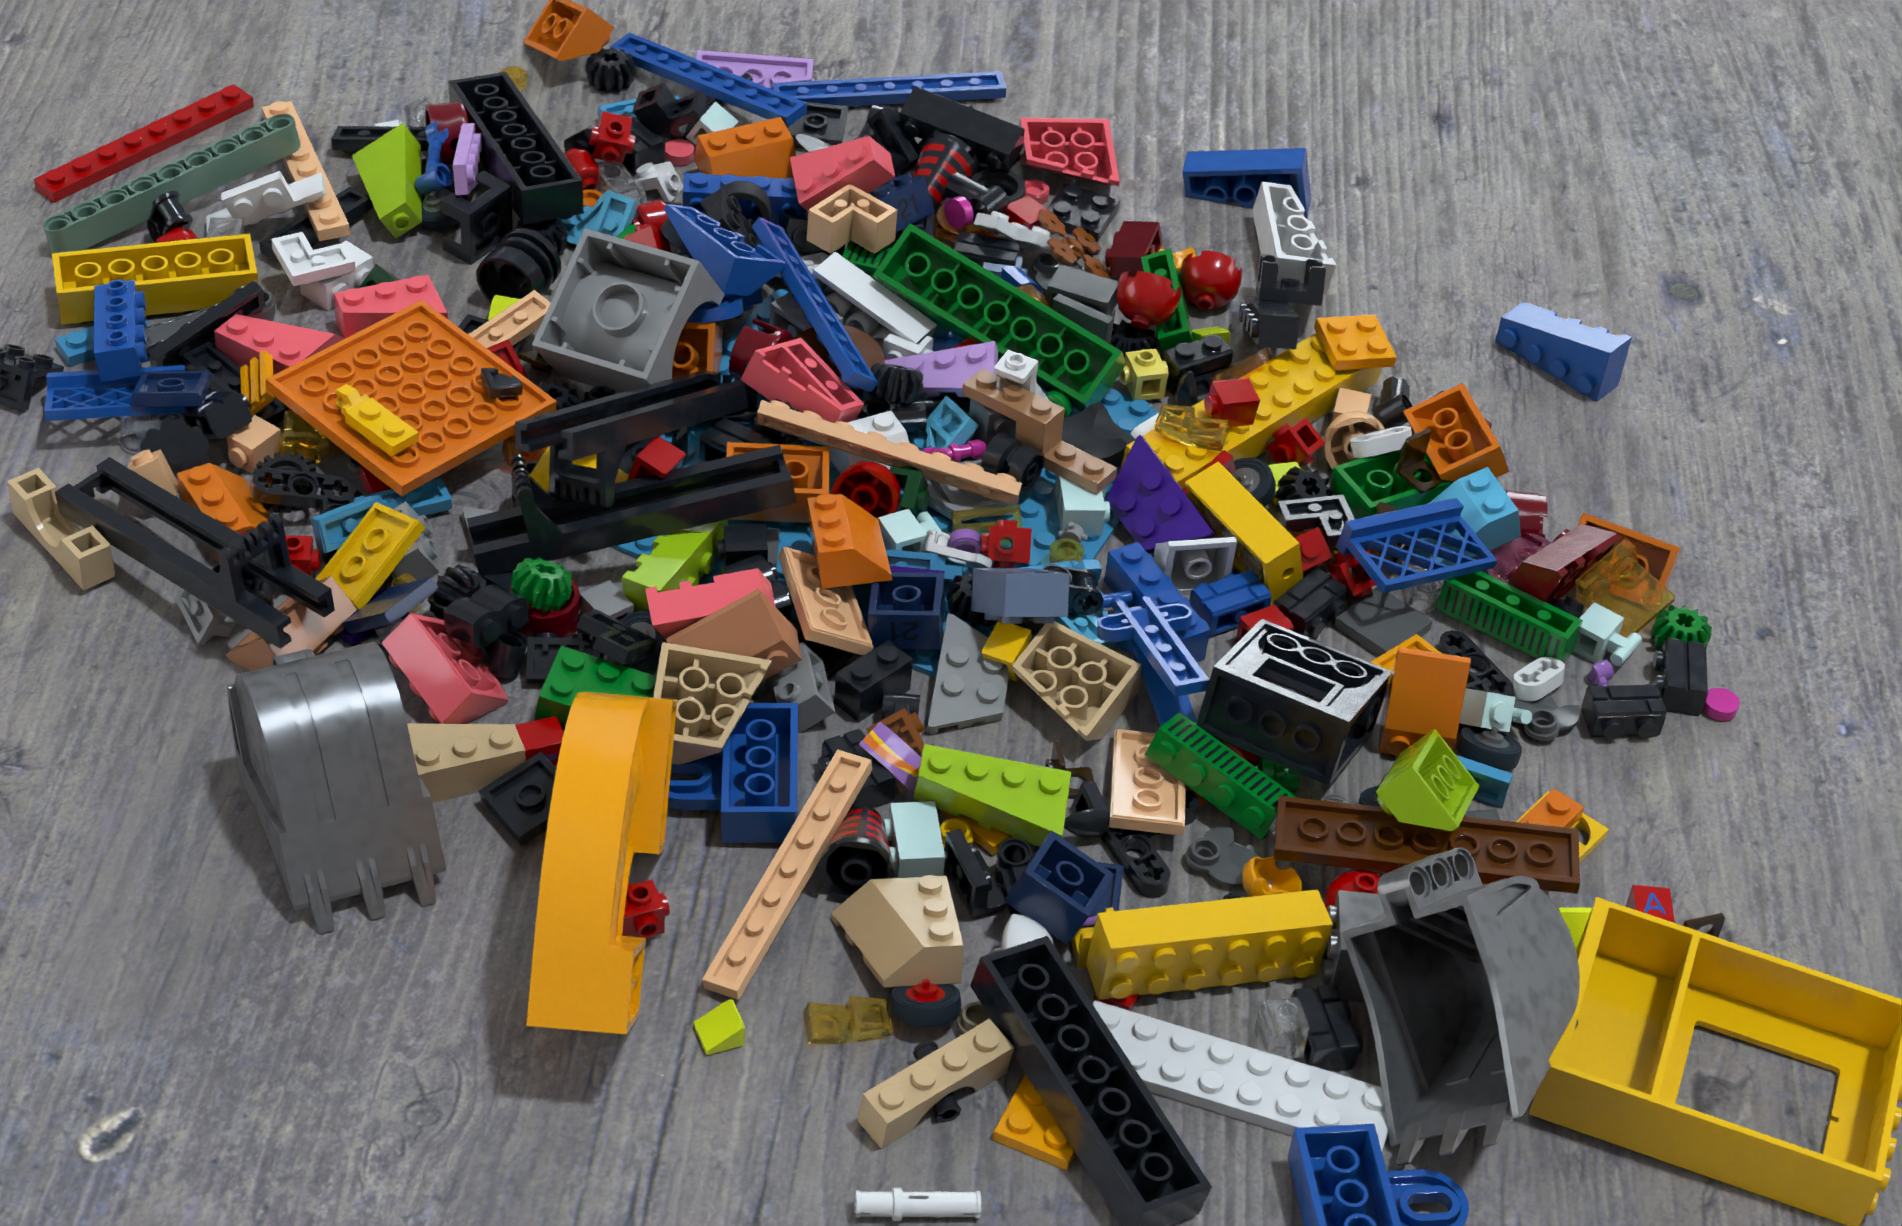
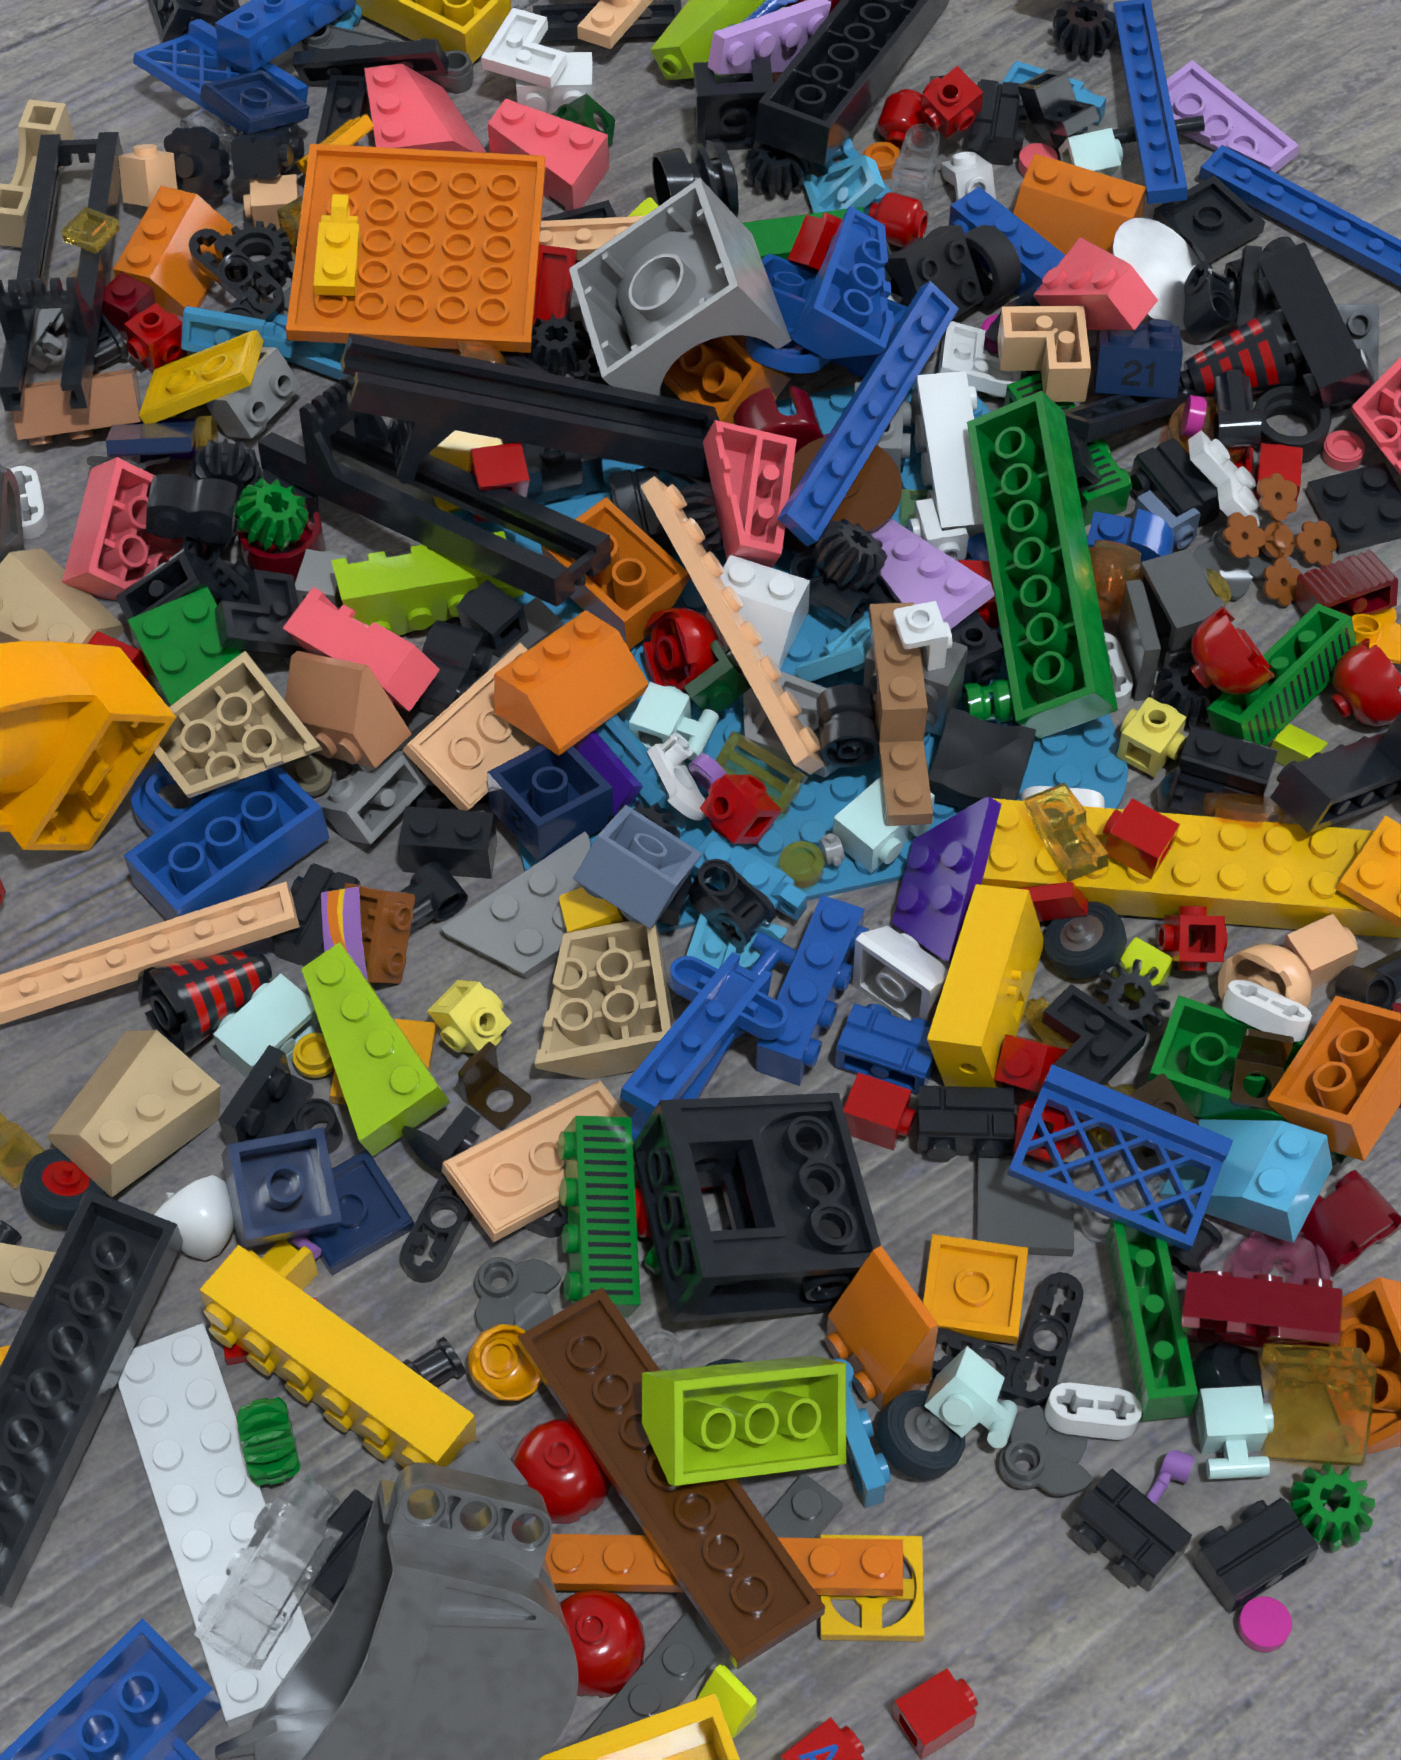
camera: 55 degrees right, 15 degrees up
(193, 511) = (90, 229): none -> clear yellow tile
(500, 385) = (495, 288): black tile -> none
(528, 674) = (168, 582): none -> black brick
(972, 449) = (818, 672): dark pink piece -> none
(1015, 742) = (469, 1016): none -> light yellow brick
(1218, 1010) = (268, 1441): none -> green gear
(1329, 1054) = (266, 1582): none -> clear brick
(1660, 853) = (936, 1712): none -> red brick

